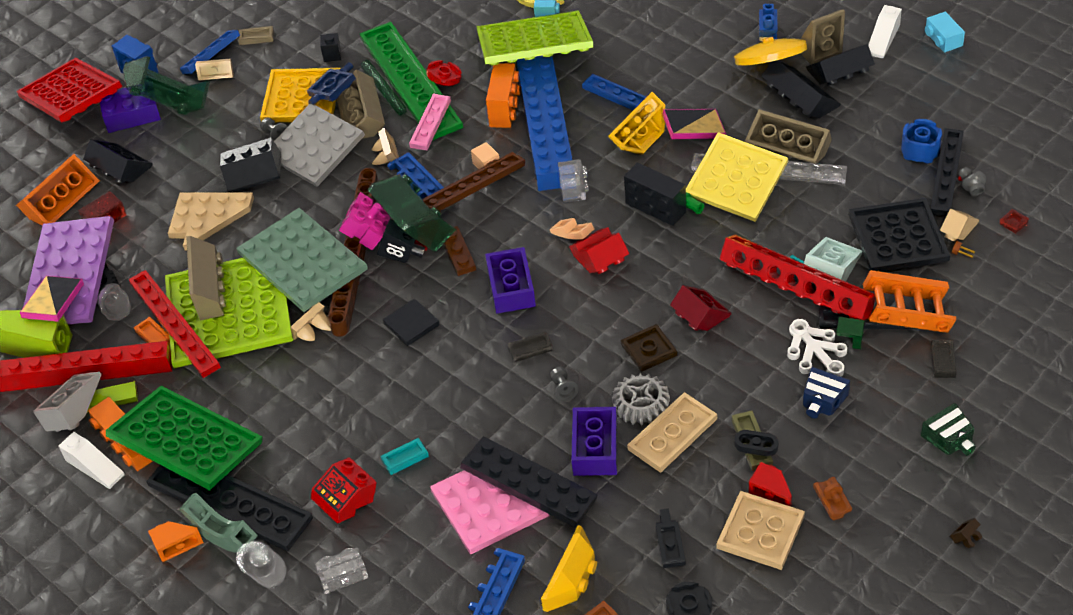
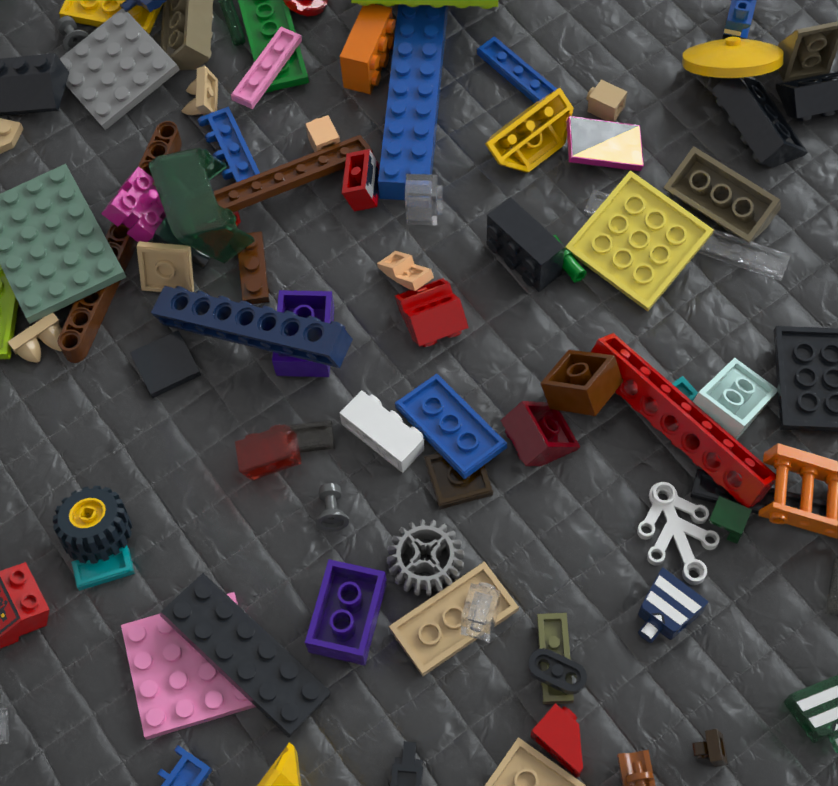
camera: 10 degrees right, 15 degrees up
(391, 426) = (92, 524): none -> black wheel
(395, 259) = (164, 266): none -> tan tile
(472, 277) = (253, 326): none -> dark blue brick
(506, 357) = (267, 452): none -> clear red brick
(523, 178) = (361, 180): none -> red brick
(585, 329) = (382, 430): none -> white brick
(634, 316) = (451, 426): none -> blue tile
(687, 97) = (606, 101): none -> tan brick
(692, 414) = (480, 611): none -> clear brick
(722, 267) = (582, 382): none -> reddish brown brick
(877, 469) = (712, 748): none -> dark brown tile

